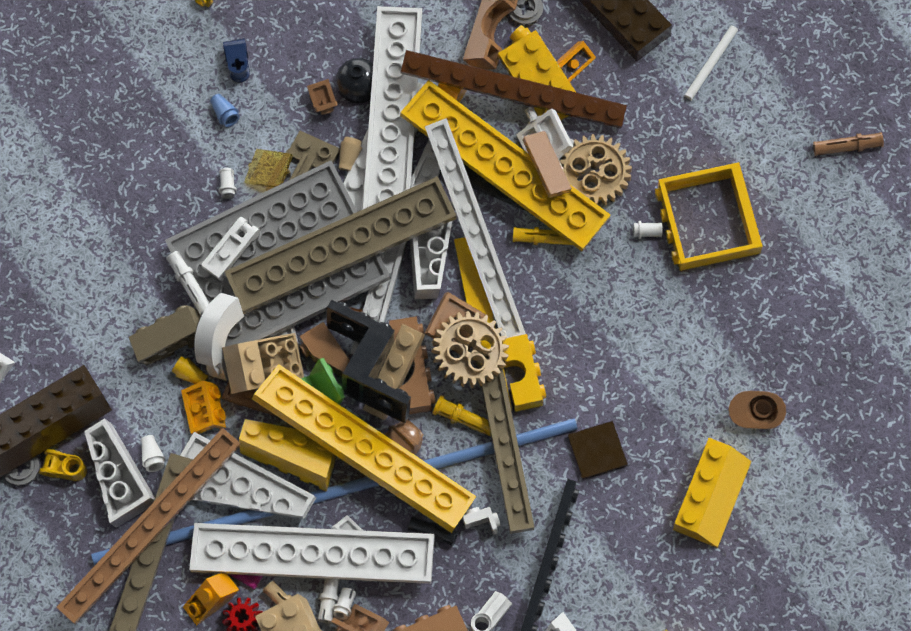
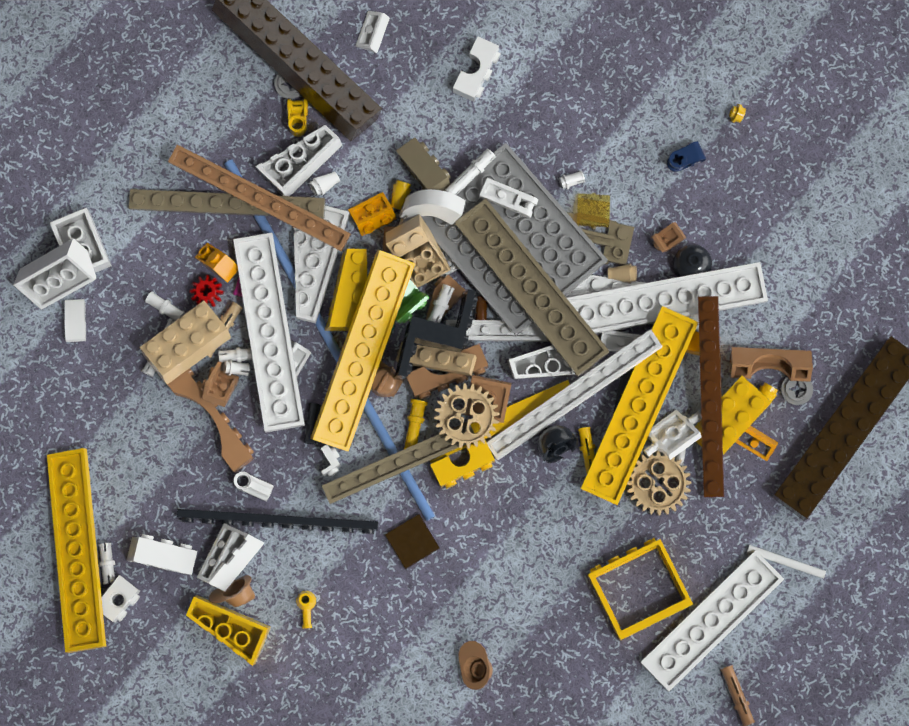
camera: 75 degrees right, 10 degrees up
(55, 241) = (470, 85): none -> white arch
(224, 110) = (635, 160): medium blue cone -> none
(331, 348) = (441, 303): none -> white pin
(522, 265) = (558, 440): none -> black cylinder
(546, 164) = (646, 440): tile -> none
(642, 592) = (306, 608): none -> yellow bar
(647, 229) = (616, 540): white pin -> none
(712, 493) = (396, 643): yellow slope -> none
(760, 151) = (712, 620): none -> white plate

